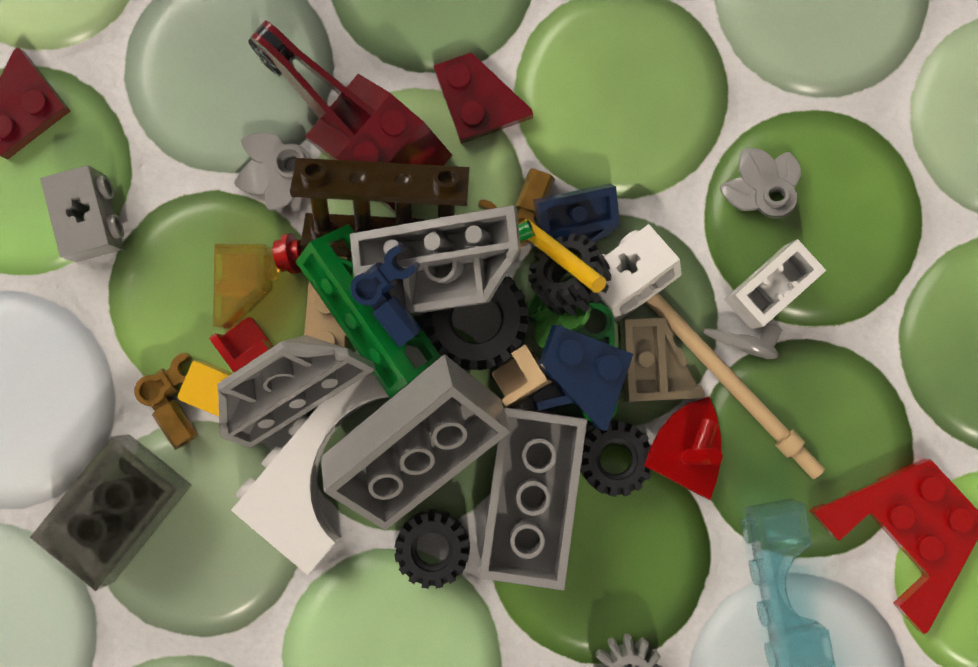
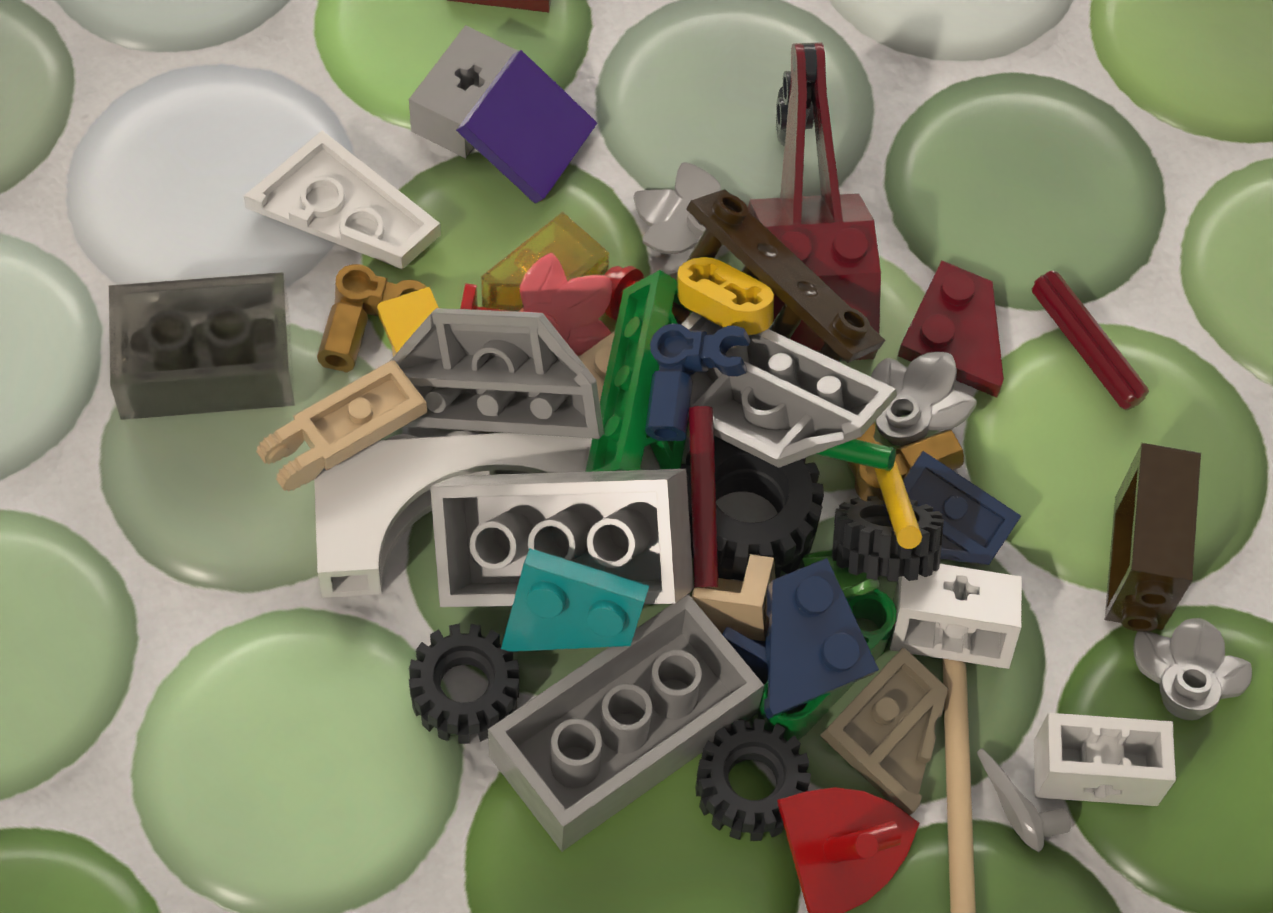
camera: 35 degrees right, 25 degrees down
(90, 346) = (344, 202): none -> white wing
(138, 205) = (527, 126): none -> dark purple tile
(237, 487) = (343, 424): none -> tan hinge
(276, 299) = (569, 305): none -> coral plate
(361, 218) = (725, 295): none -> yellow beam
(459, 479) = (571, 606): none -> teal wing
(461, 350) = (703, 497): none -> dark red bar
(496, 157) = (924, 395): none -> light grey plate
(550, 37) = (1090, 340): none -> dark red axle
(695, 135) = (1153, 537): none -> dark brown window

